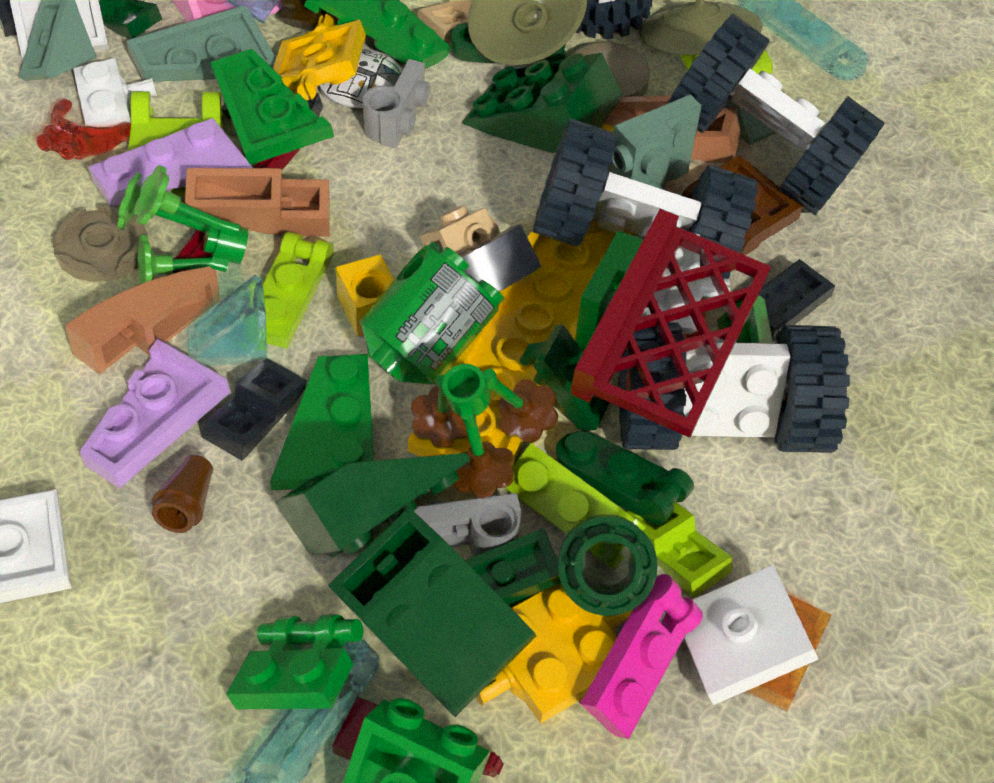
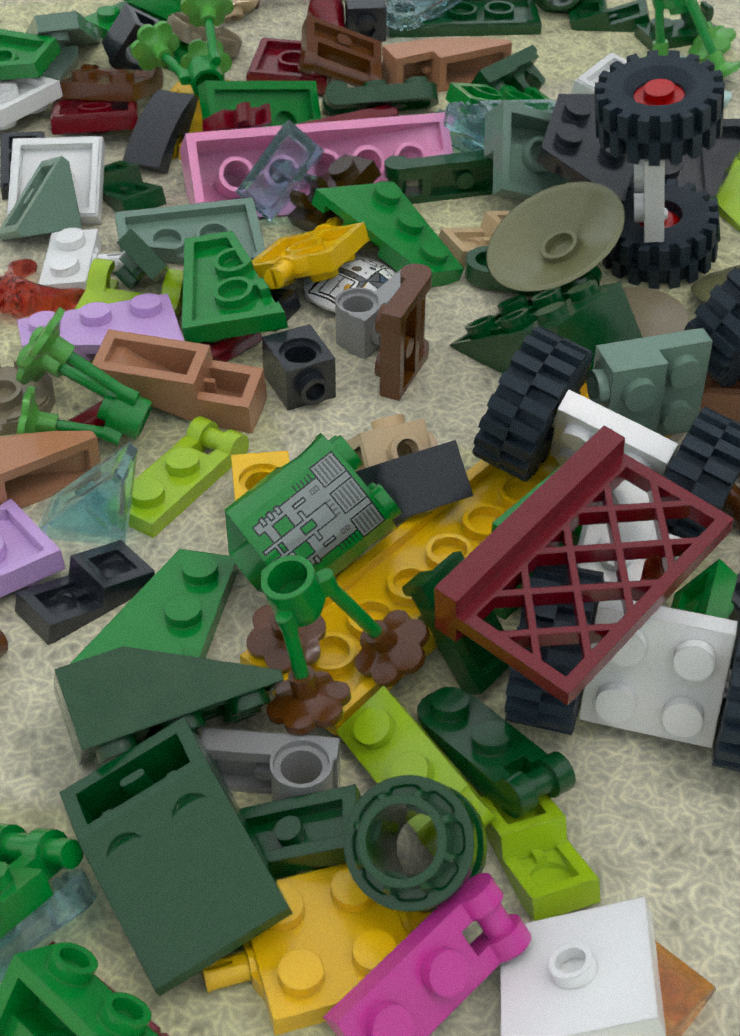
camera: 20 degrees right, 10 degrees down
(176, 90) = (138, 261): none -> dark green plate
(353, 169) = (299, 367): none -> black brick
(431, 122) = (403, 332): none -> reddish brown plate

